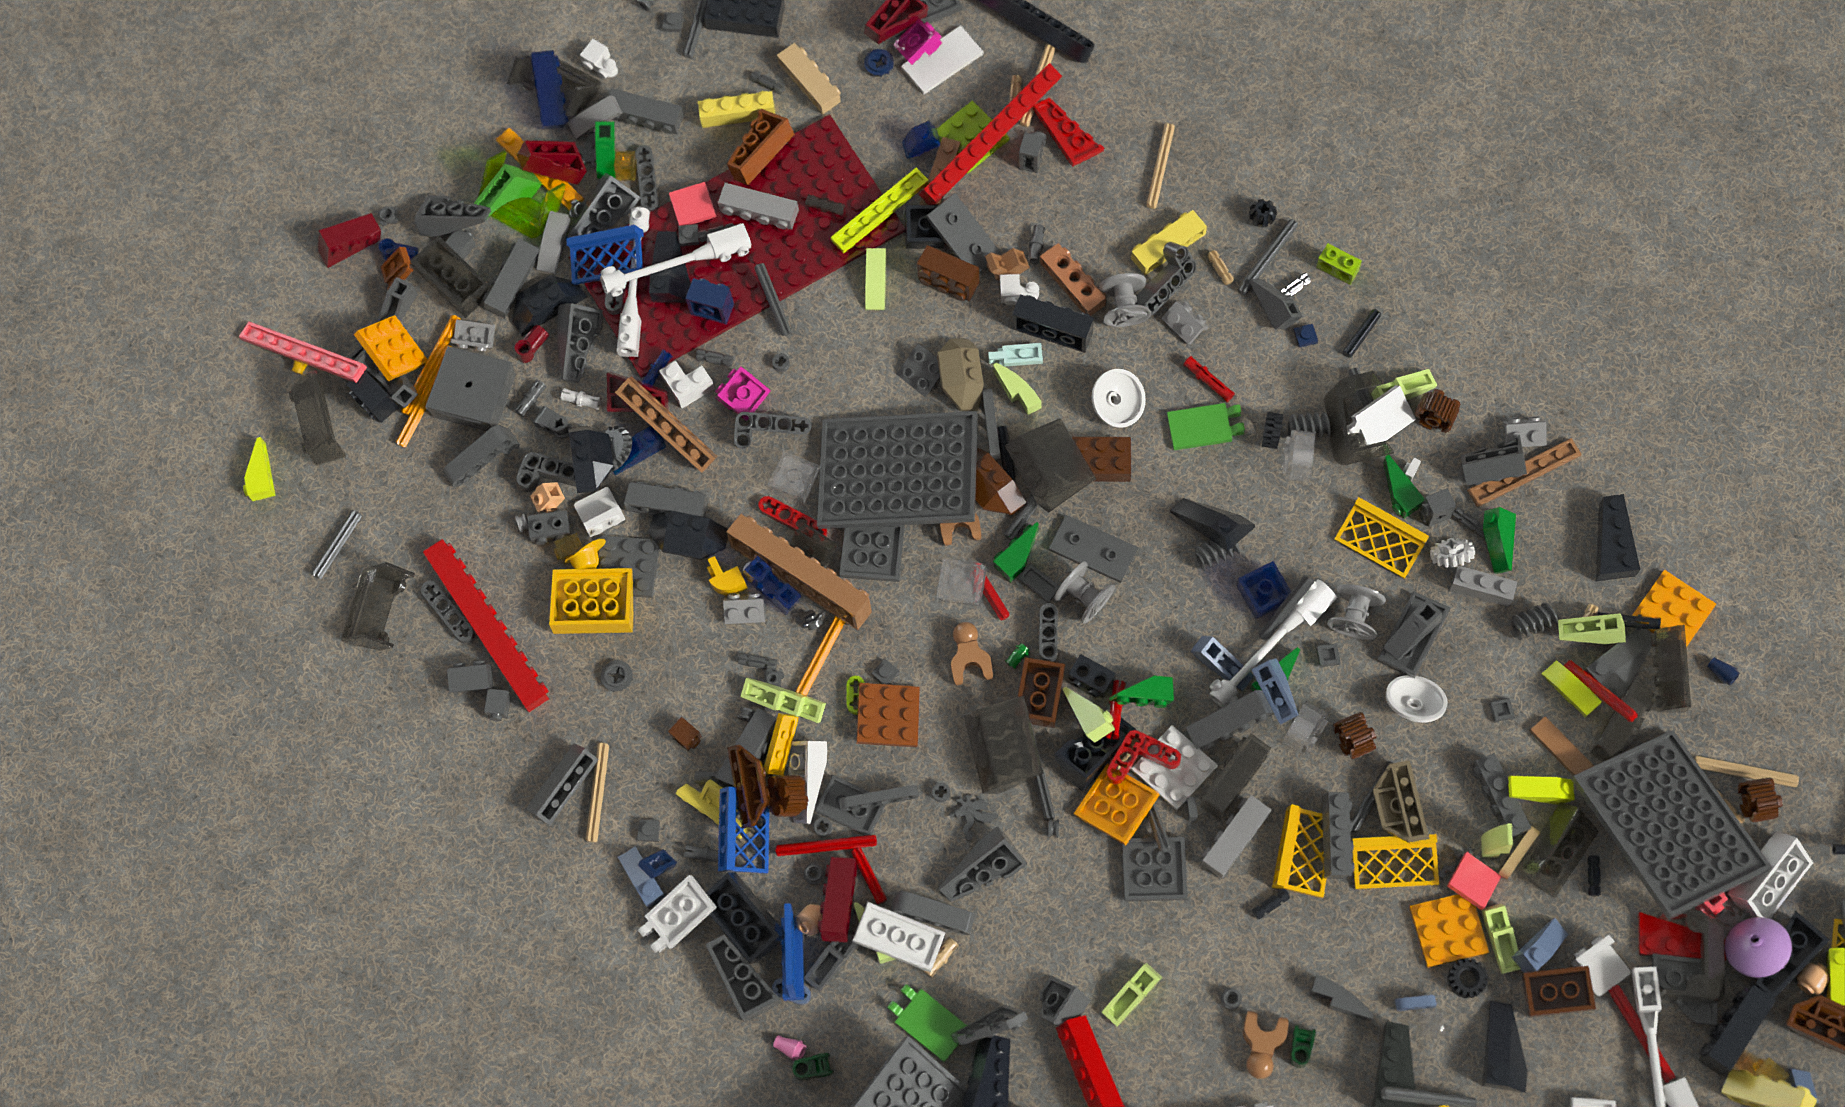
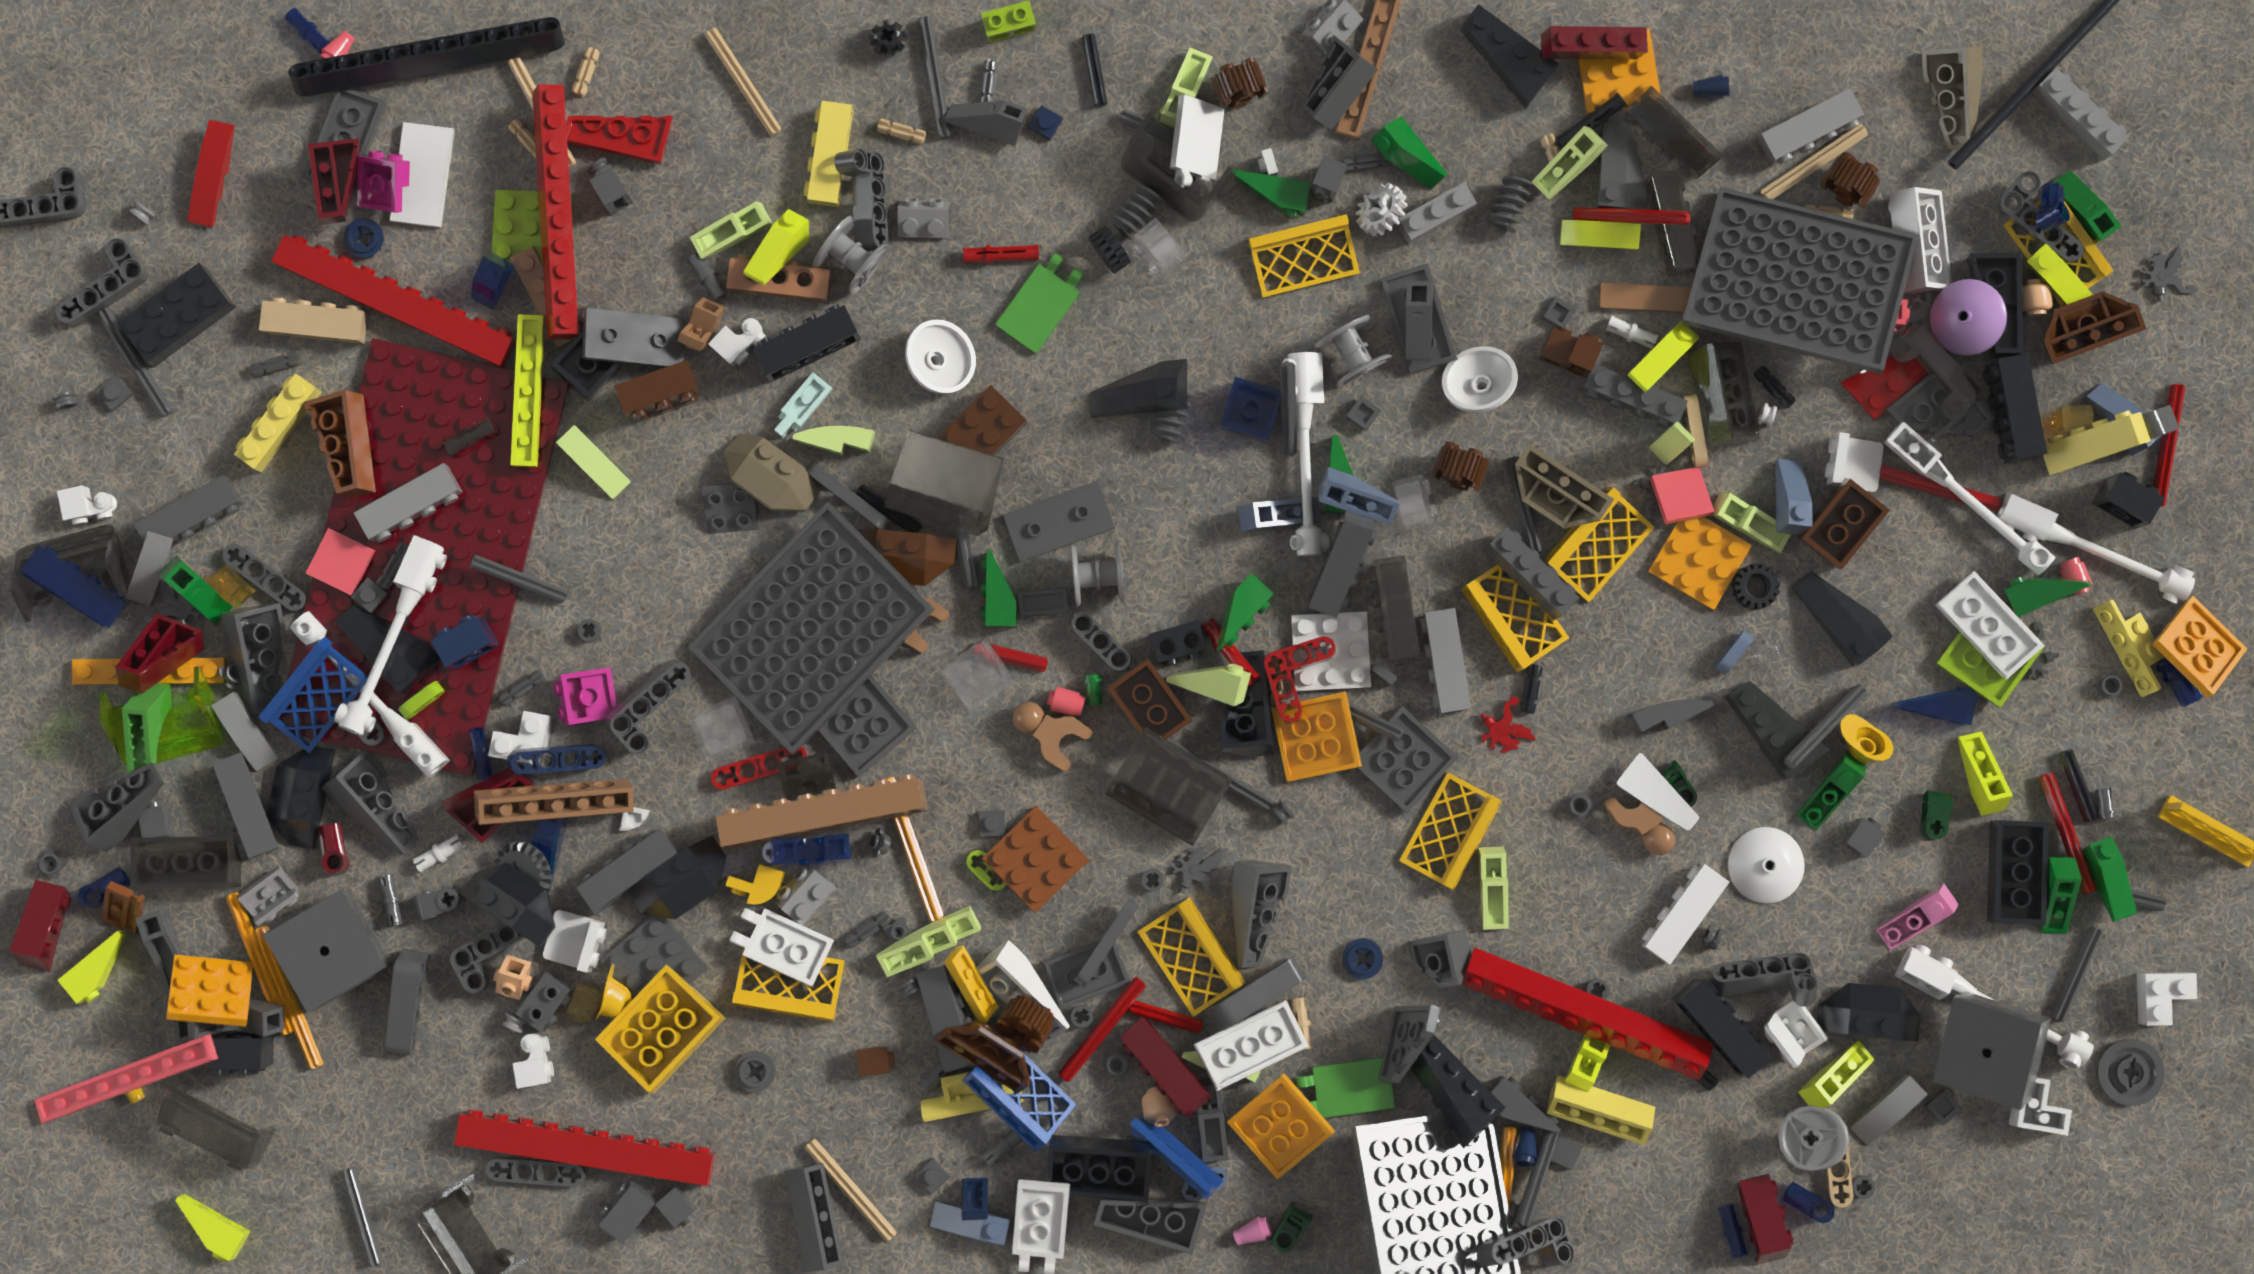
camera: 55 degrees left, 15 degrees up
(348, 286) = (92, 972): none -> neon yellow slope
(507, 556) = (536, 1068): none -> white brick
(656, 310) = (421, 700): none -> lime beam
(668, 652) = (787, 1005): none -> yellow fence
(692, 406) = (556, 762): none -> dark blue beam
(698, 480) = (633, 819): none -> white tile
(704, 624) = (784, 946): none -> white tile
(860, 106) = (393, 301): none -> red brick
(868, 1001) = (1280, 1126): none -> light orange plate
(936, 855) = (1211, 947): none -> yellow fence
(995, 647) = (1066, 701): none -> coral brick
(1007, 950) = (1350, 957): none -> dark blue gear
(1074, 232) = (731, 230): none -> yellowish green slope
(1082, 86) = (585, 71): none -> tan axle
(1090, 260) = (780, 245): none -> neon yellow slope
(1146, 954) = (1470, 841): none -> yellow fence
(1230, 910) = (1500, 730): none -> red piece
(1285, 1034) = (1652, 789): none -> white sticker
(1488, 735) = (1570, 352): none -> reddish brown brick
(1535, 760) = (1632, 332): none -> white pin
(1573, 886) = (1767, 415): none -> white bush
(1673, 575) = (1594, 42): none -> dark red brick
(1763, 747) = (1811, 126): none -> light grey brick

